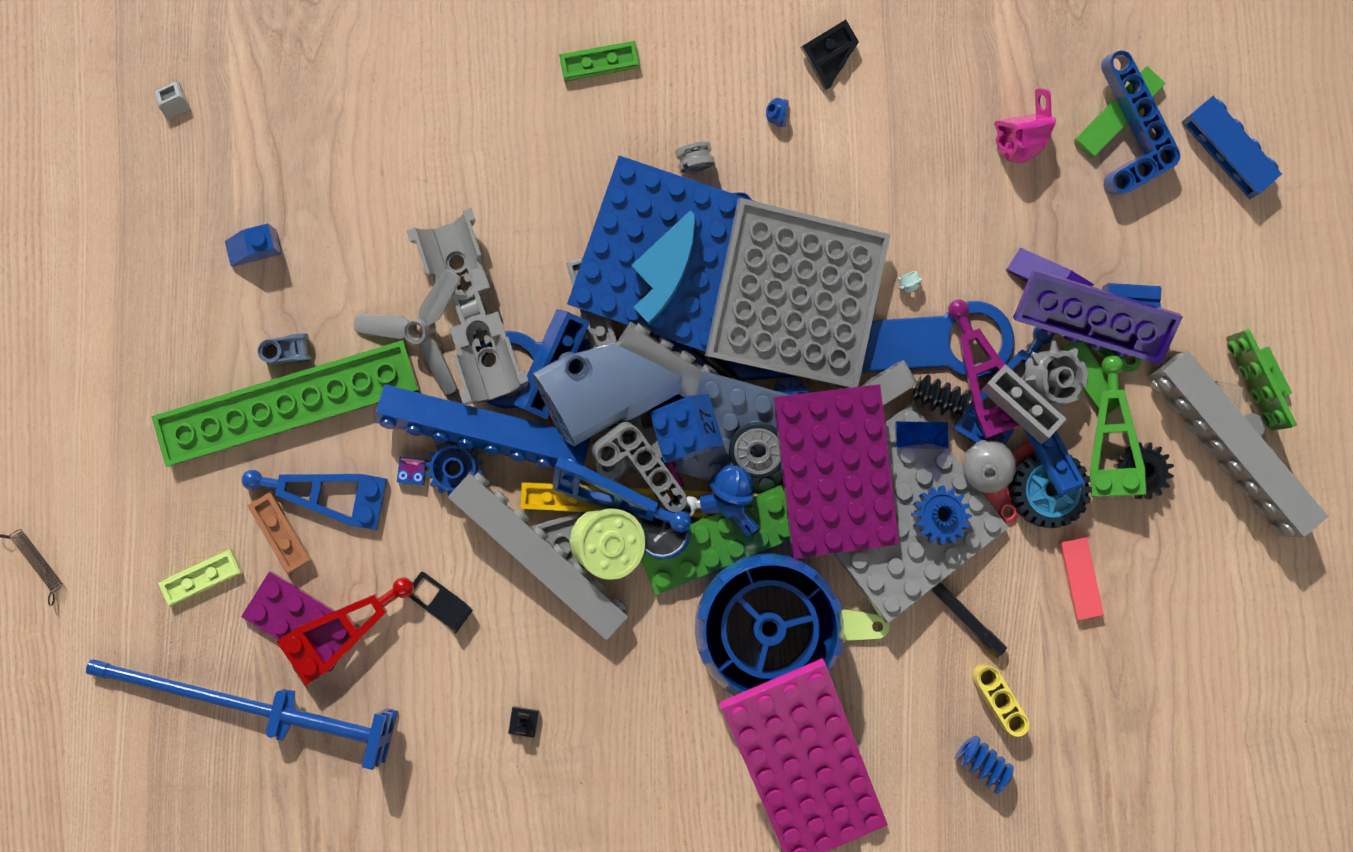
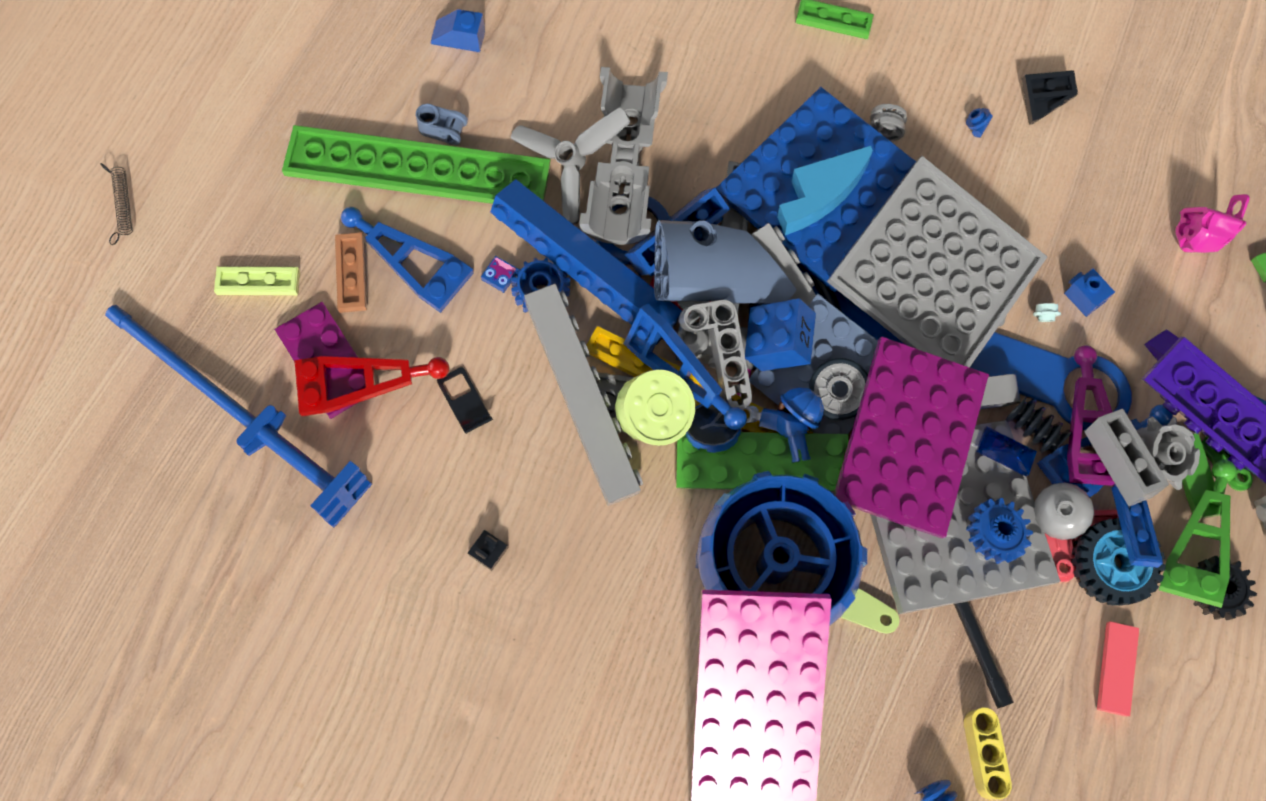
camera: 20 degrees right, 15 degrees down
(939, 245) = (1088, 291): none -> blue brick

